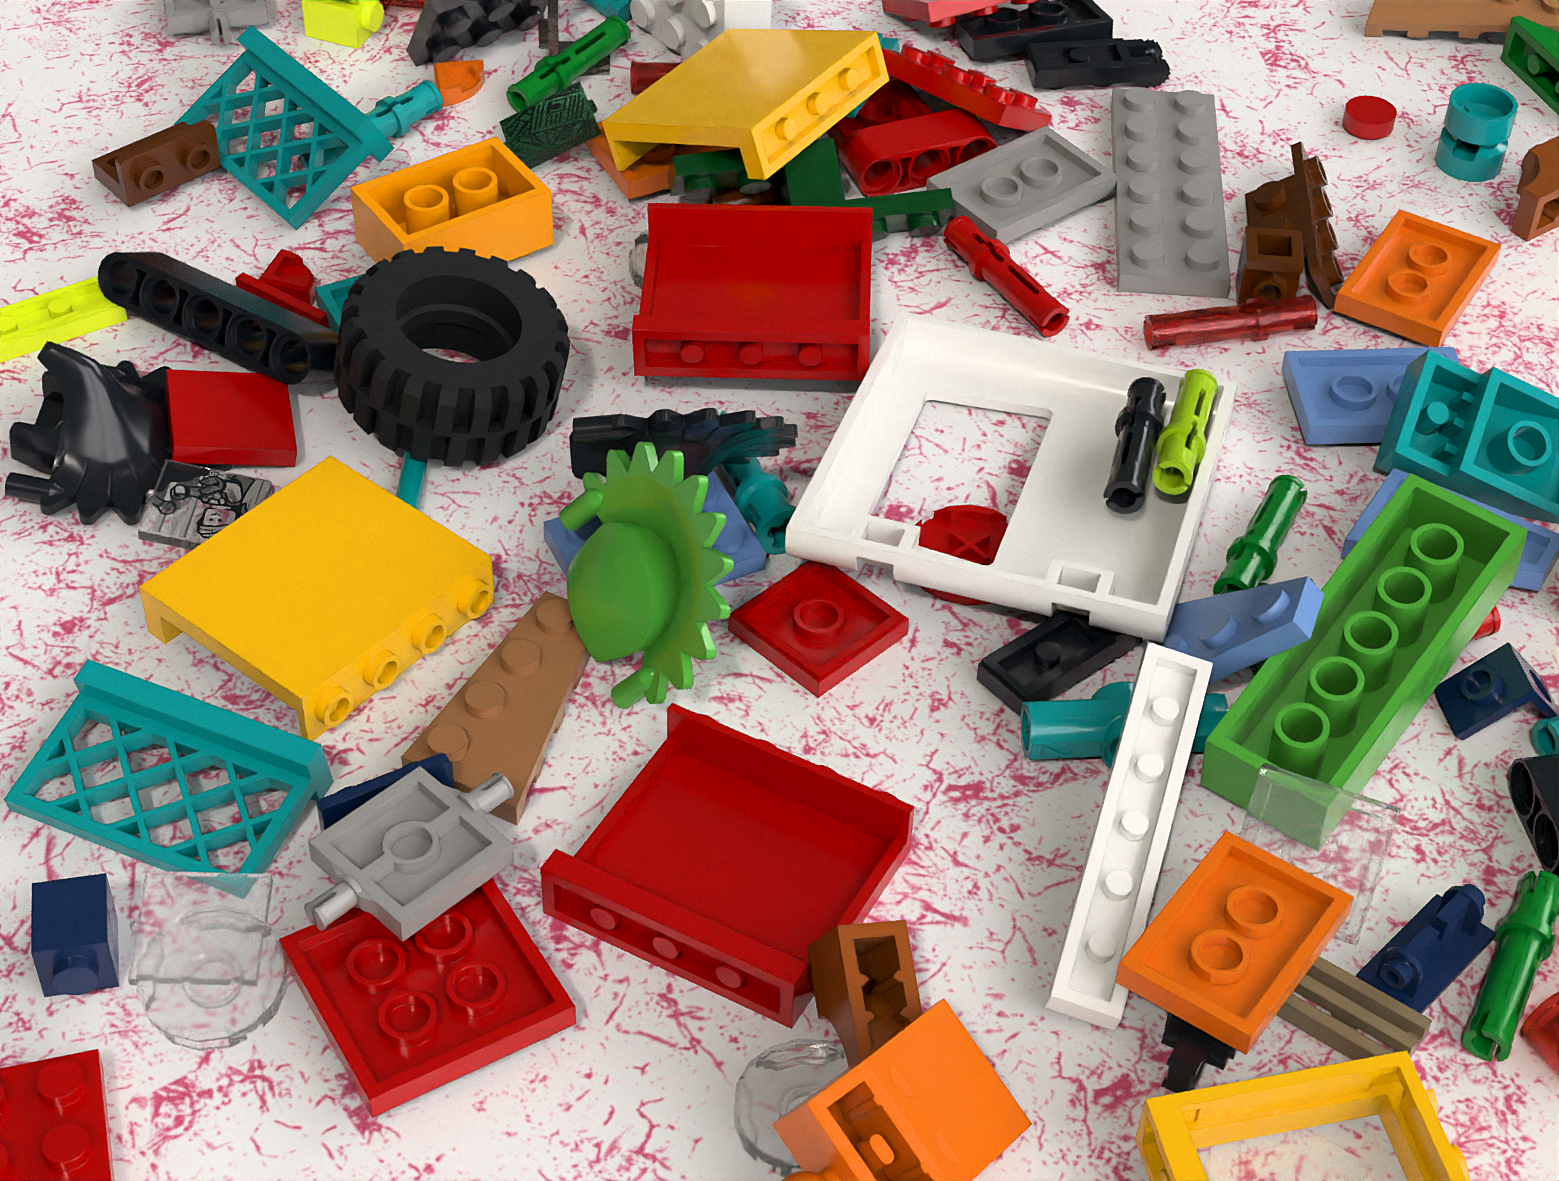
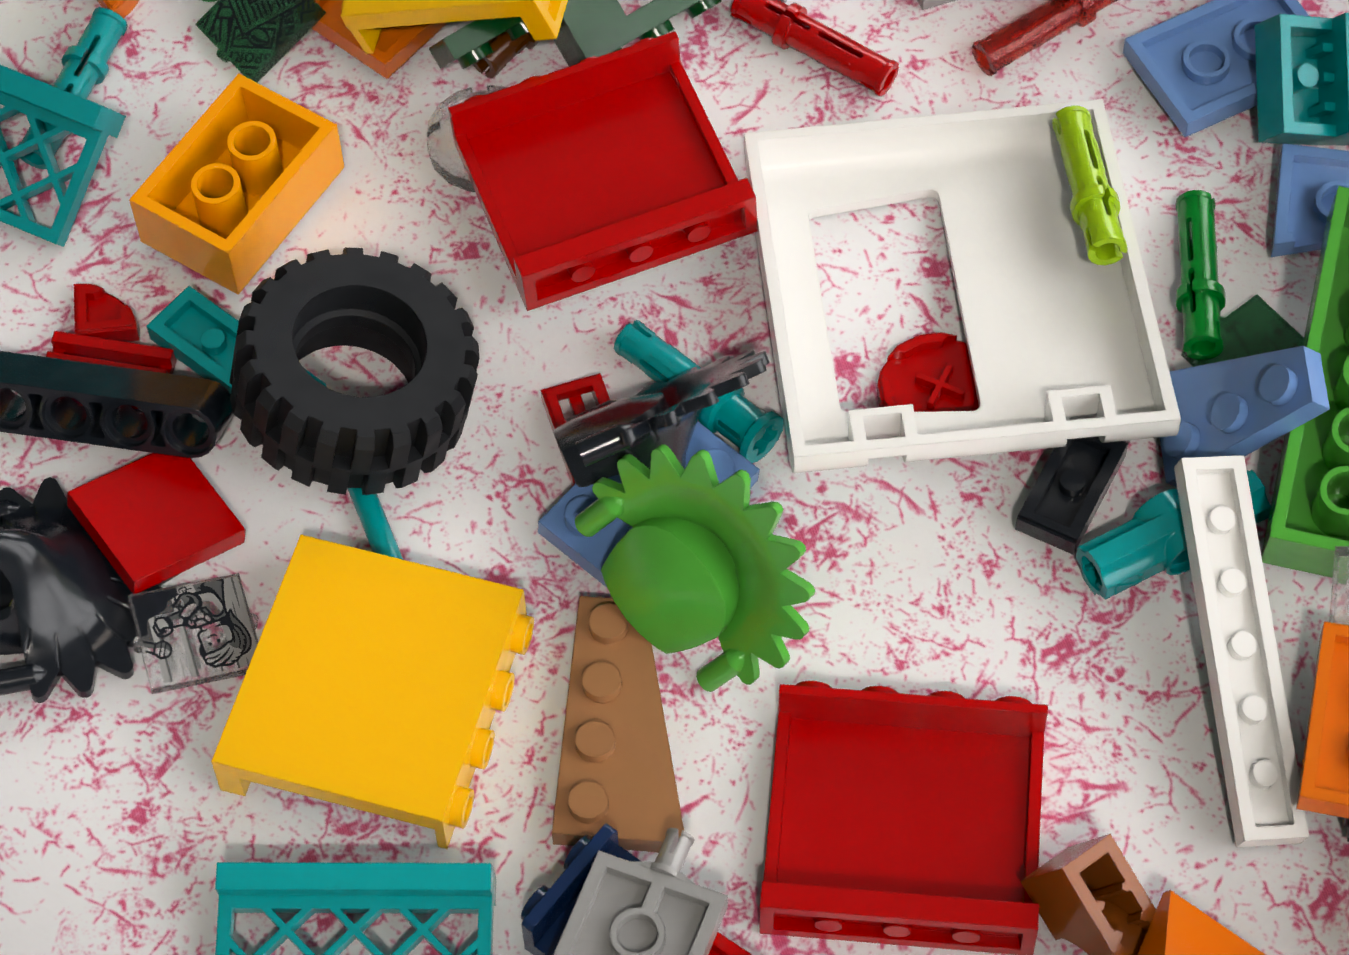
camera: 20 degrees left, 15 degrees up
(818, 625) = (851, 528): red tile -> none
(1137, 434) = (1047, 201): black pin -> none

